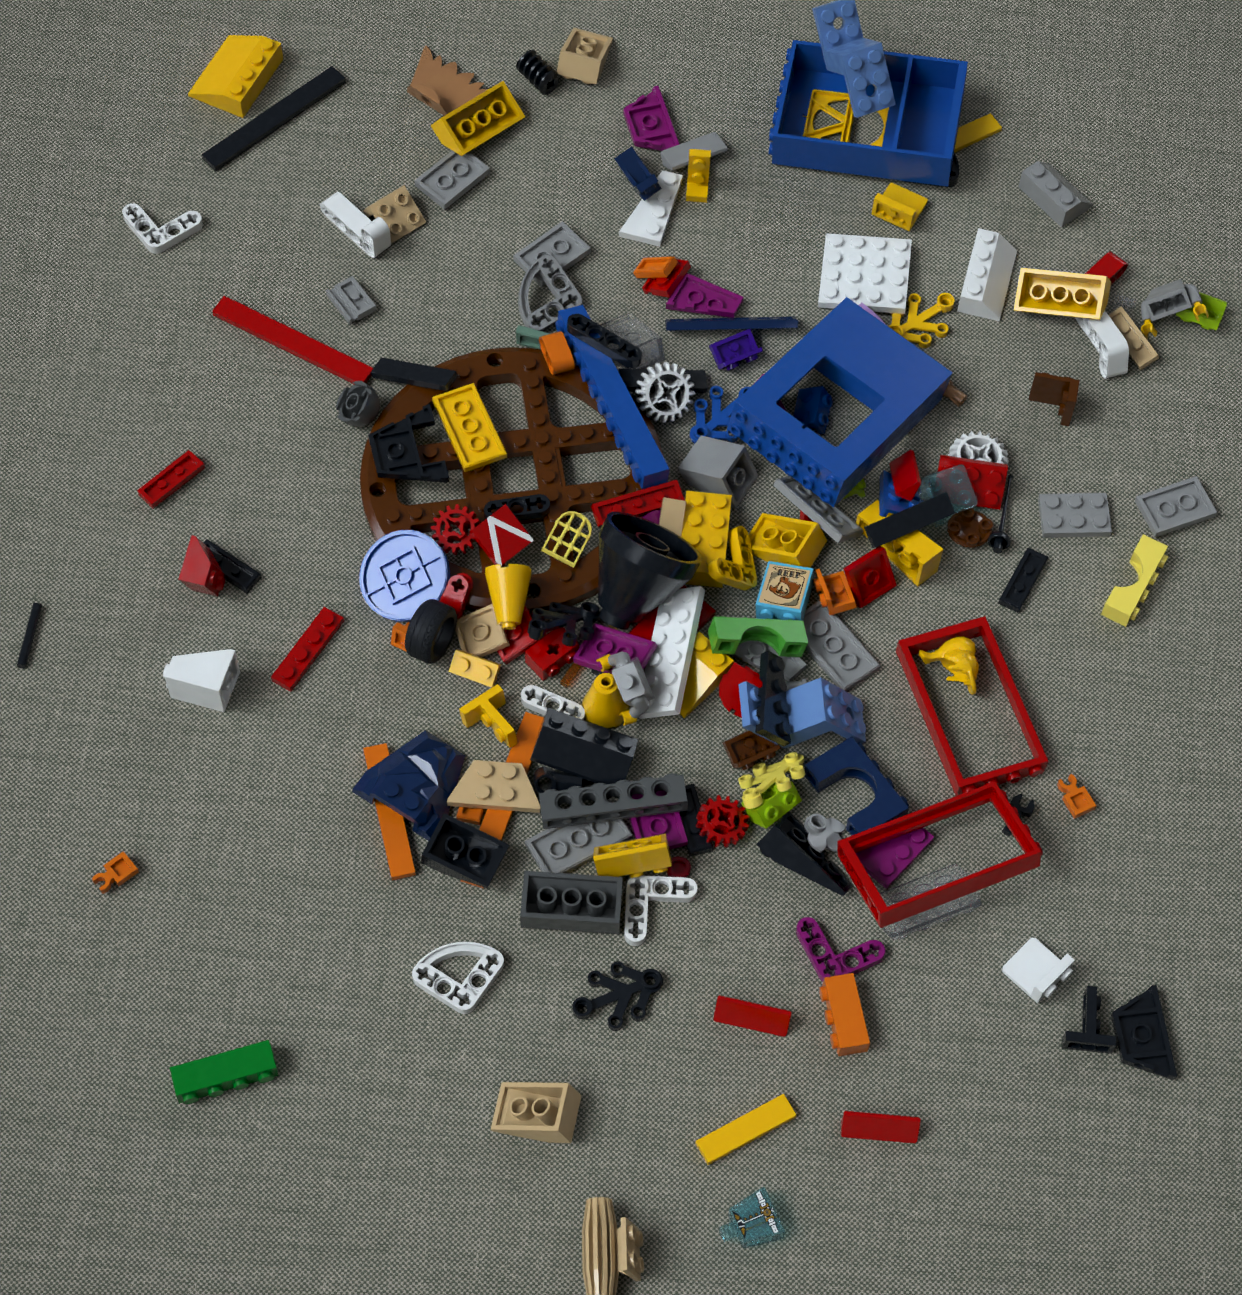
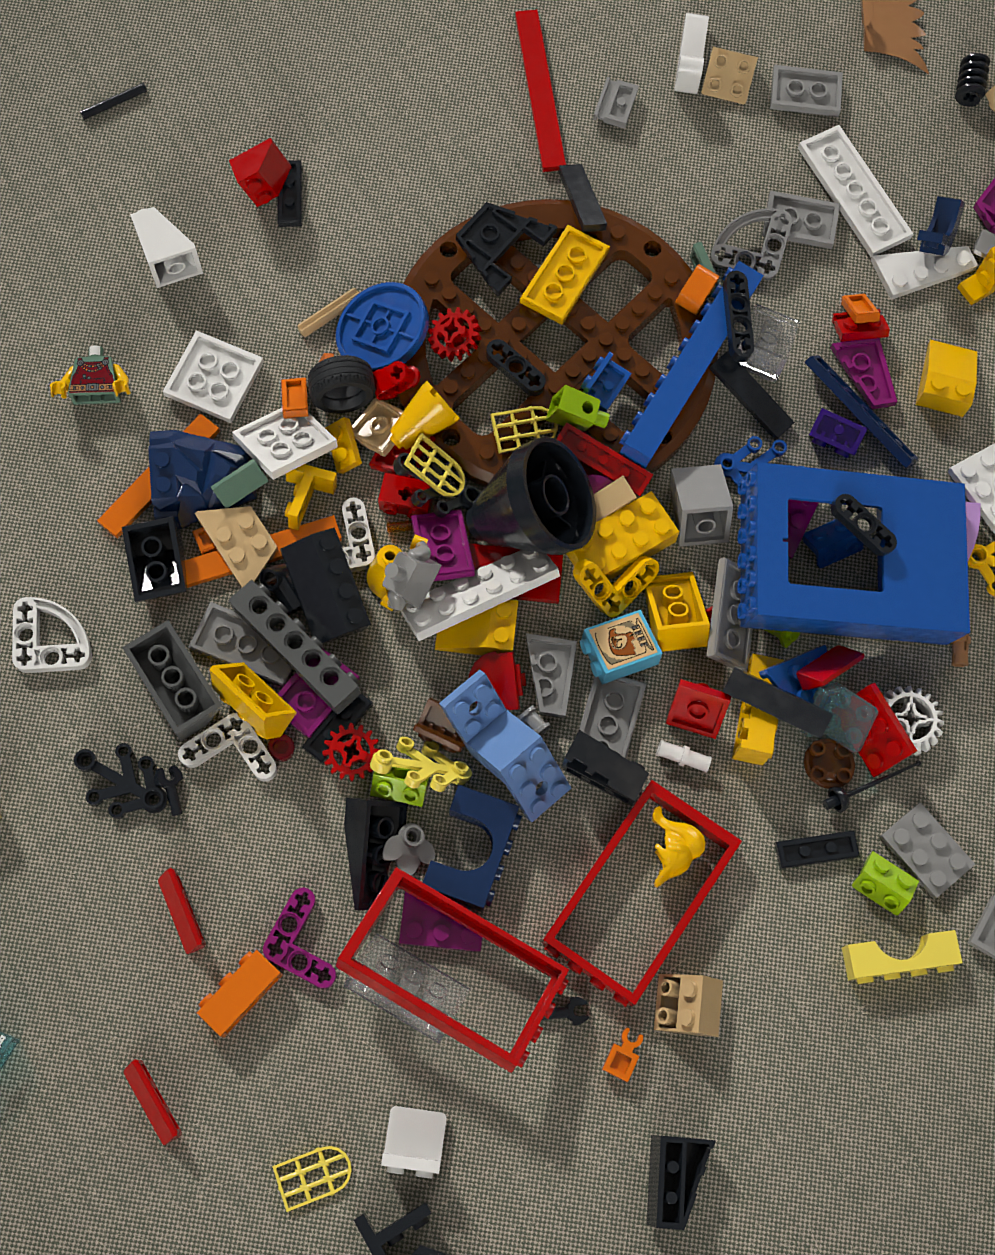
camera: 50 degrees right, 10 degrees up
(171, 479) = (333, 95): red plate -> none
(272, 801) = (92, 380): none -> torso
(307, 649) = (261, 306): red plate -> none
(340, 719) = (213, 376): none -> white plate
(354, 607) = (327, 313): none -> tan axle
(358, 405) = (516, 178): dark grey cylinder -> none
(408, 674) = (294, 398): none -> orange tile
(441, 700) = (284, 443): none -> white plate
(452, 753) = (239, 483): none -> sand green tile
(478, 119) = (879, 67): yellow slope -> none
(501, 536) = (475, 373): red tile -> none
(558, 203) = (856, 190): none -> white plate
(569, 606) = (452, 462): none -> light yellow window
(578, 462) = (606, 381): none -> blue bracket
(587, 490) = (576, 409): none -> lime torso
(643, 958) = (170, 787): none -> black bar
(657, 397) = (747, 405): white gear -> none
(745, 1129) = (69, 981): yellow tile -> none
(751, 255) = (948, 378): none -> yellow slope
(774, 706) = (482, 718): black wing -> none
(784, 636) = (574, 676): bright green arch -> none
(818, 377) = (874, 525): none -> black beam
(834, 592) = (657, 689): orange bracket -> none
(867, 663) = (604, 768): none -> black wedge
(894, 612) = (683, 756): none -> white pin
(1017, 1065) = (301, 1172): none -> light yellow window
(1071, 732) = (688, 1004): none -> tan slope
(1079, 555) = (885, 884): none -> lime bracket
(1182, 821) = (674, 1179): none -> black wedge

